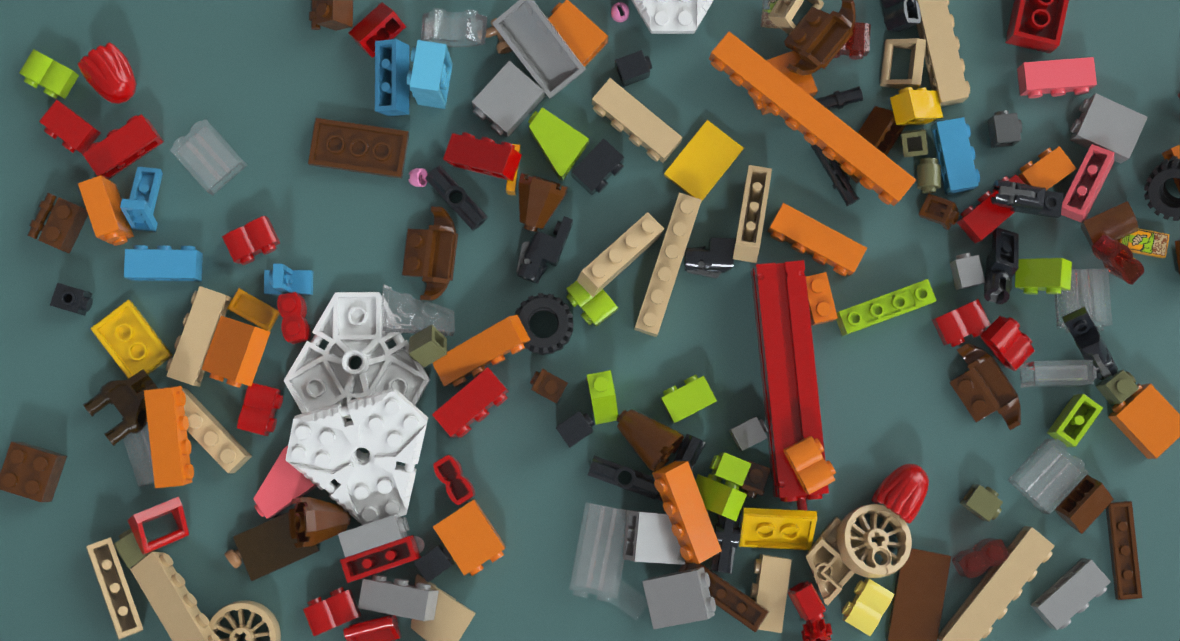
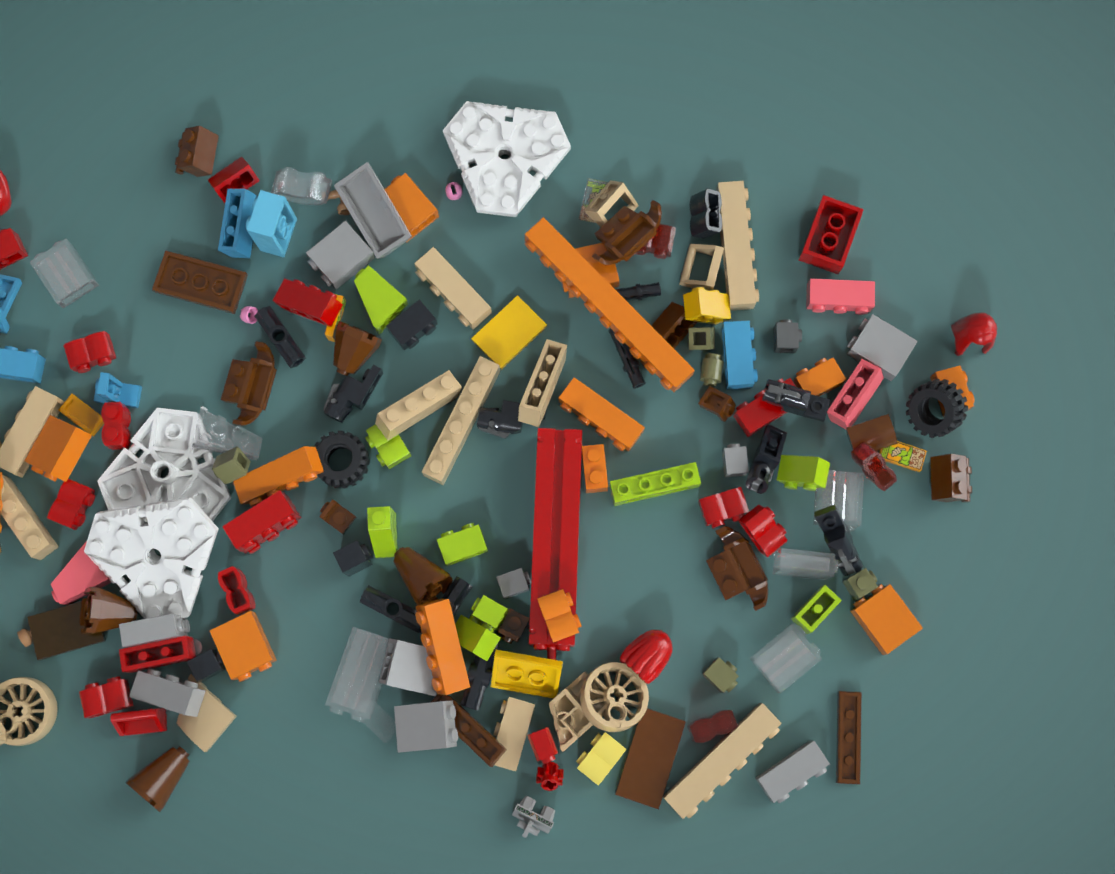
camera: 10 degrees right, 5 degrees down
(633, 68) = (457, 241): black brick -> none
(1084, 504) = (816, 688): reddish brown brick -> none

